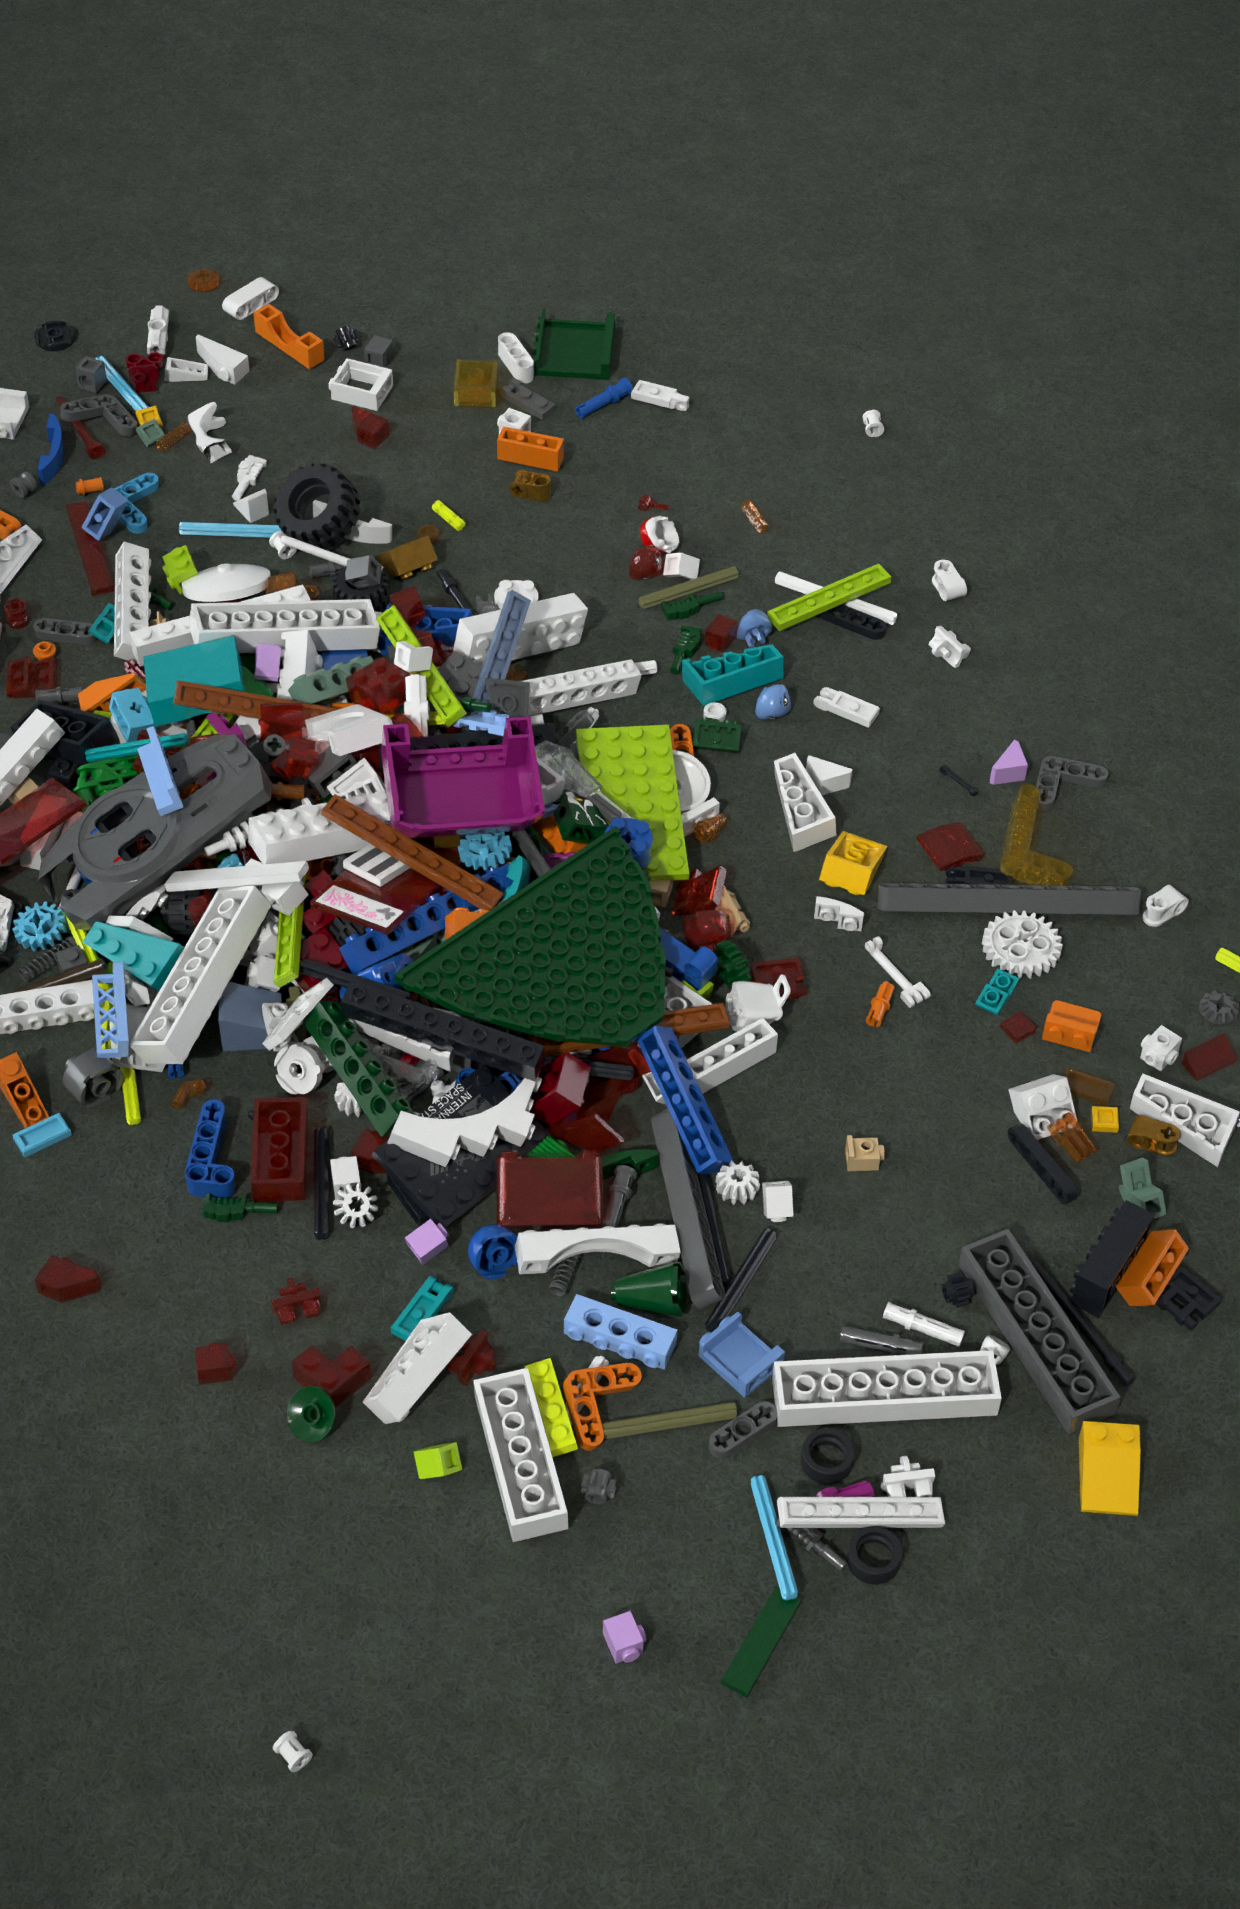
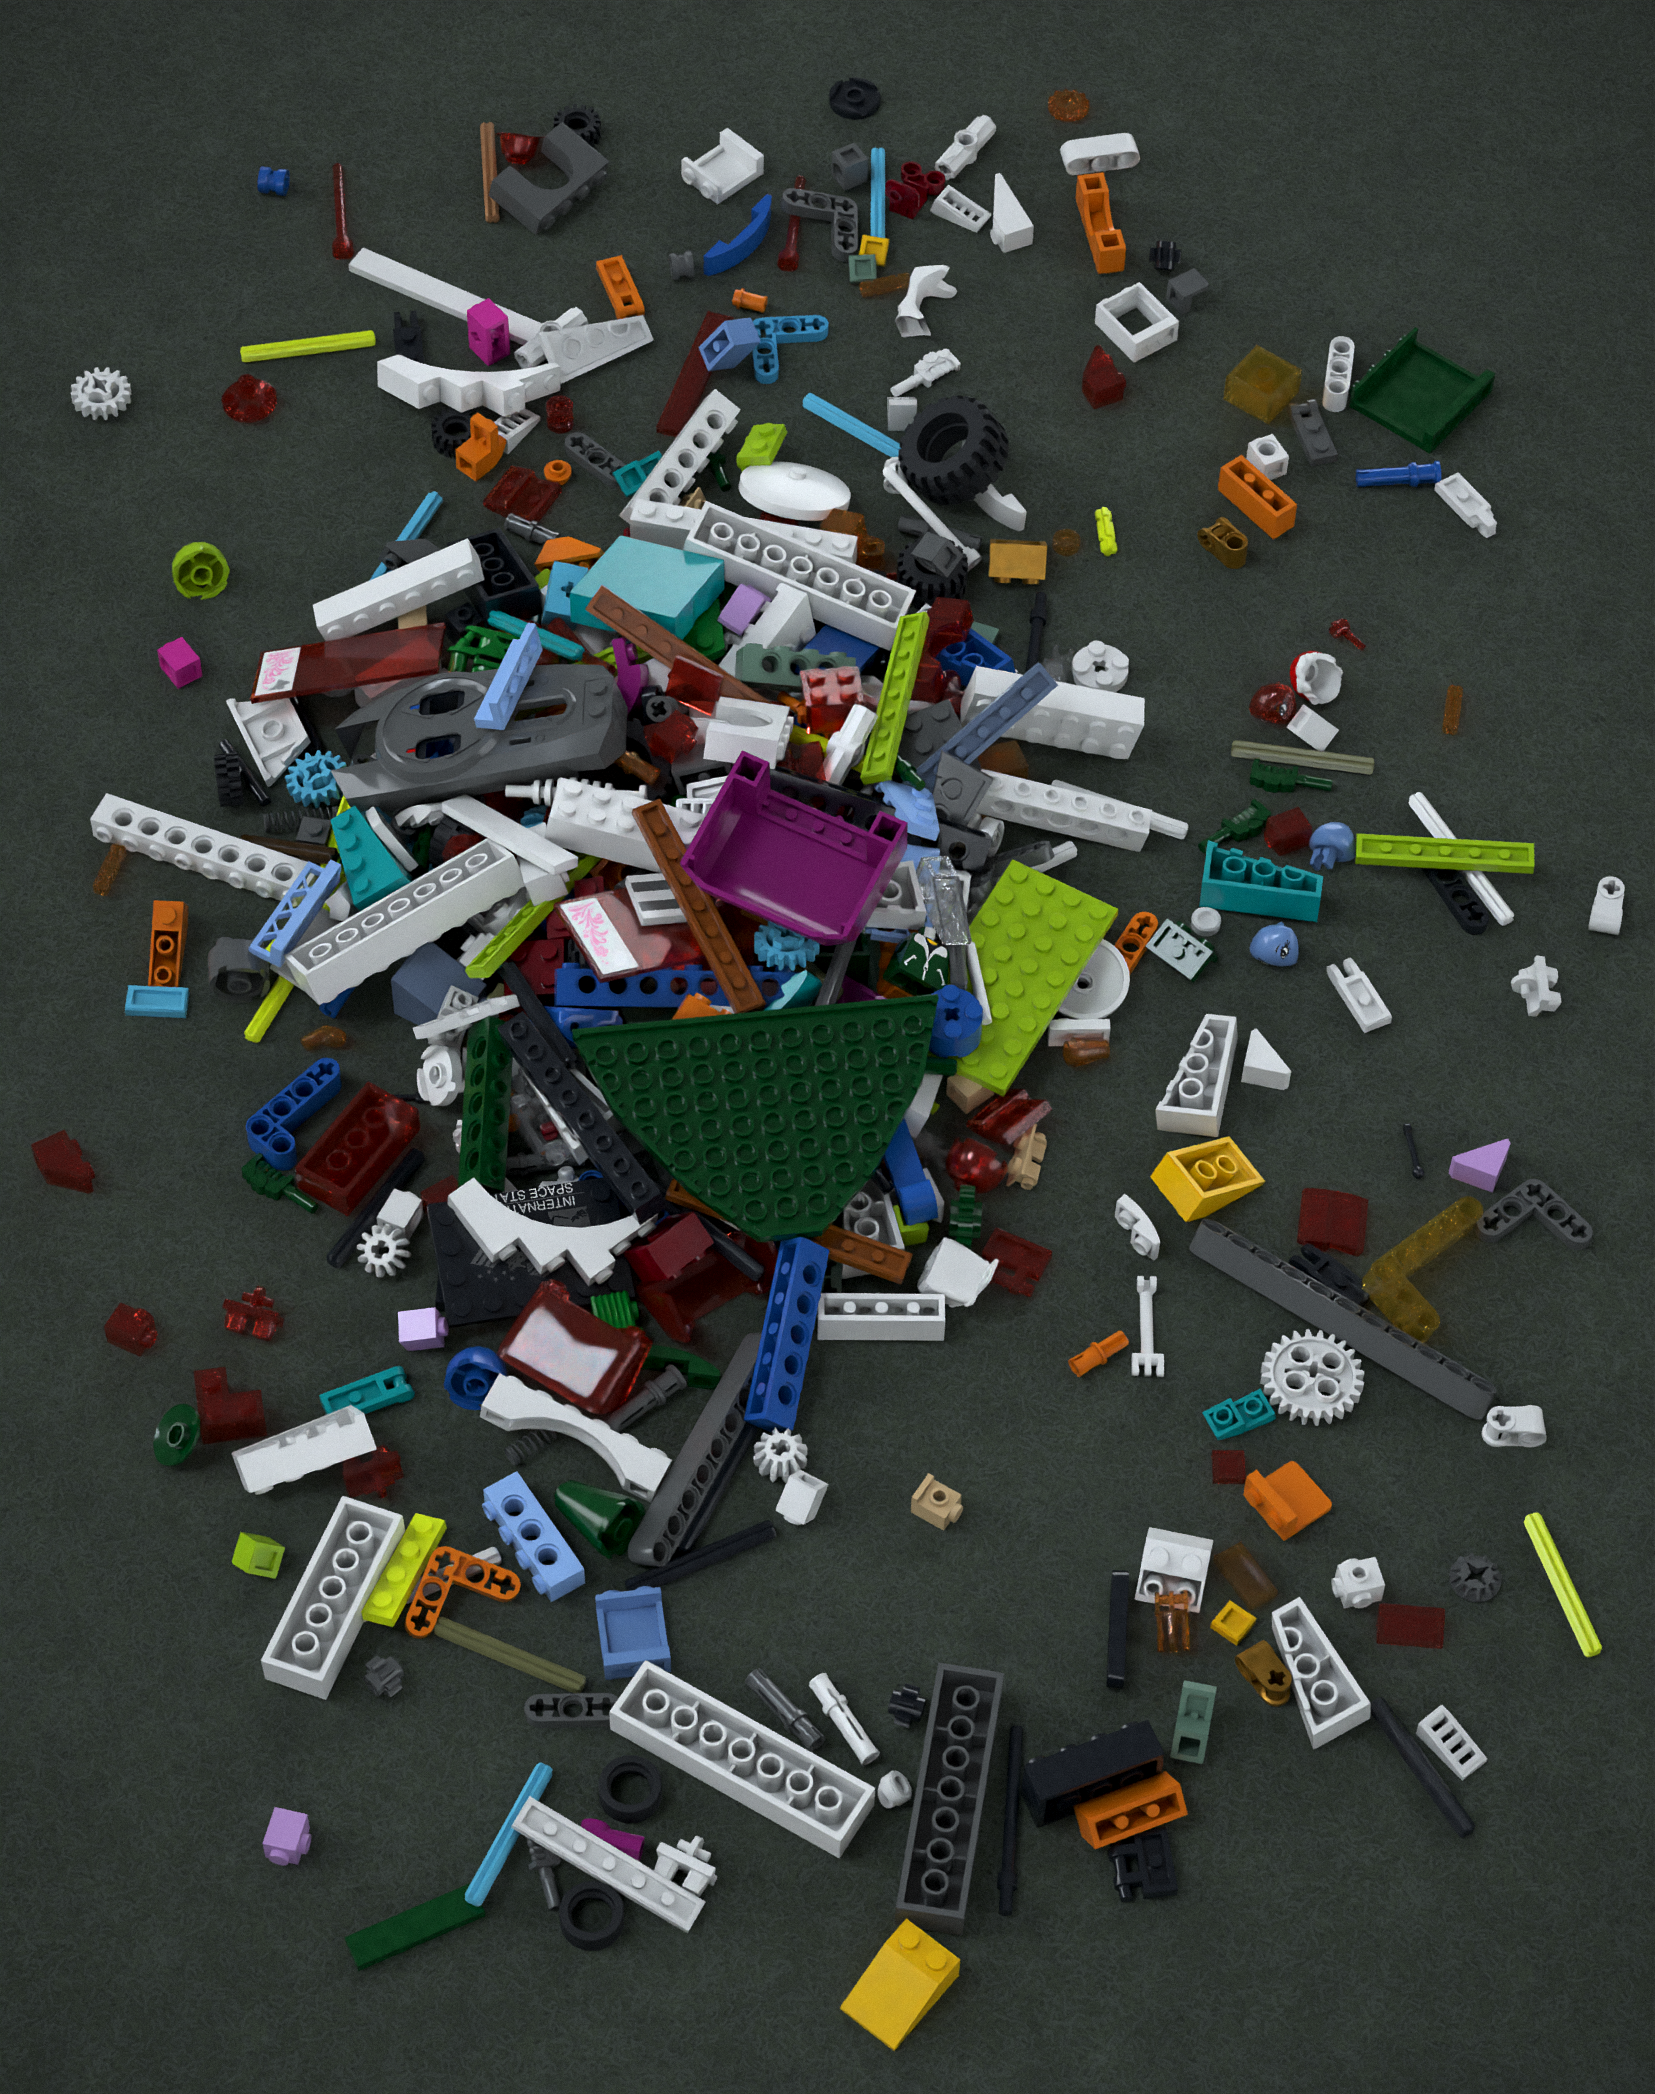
camera: 35 degrees right, 5 degrees up
(412, 658) = (880, 688): white panel -> none

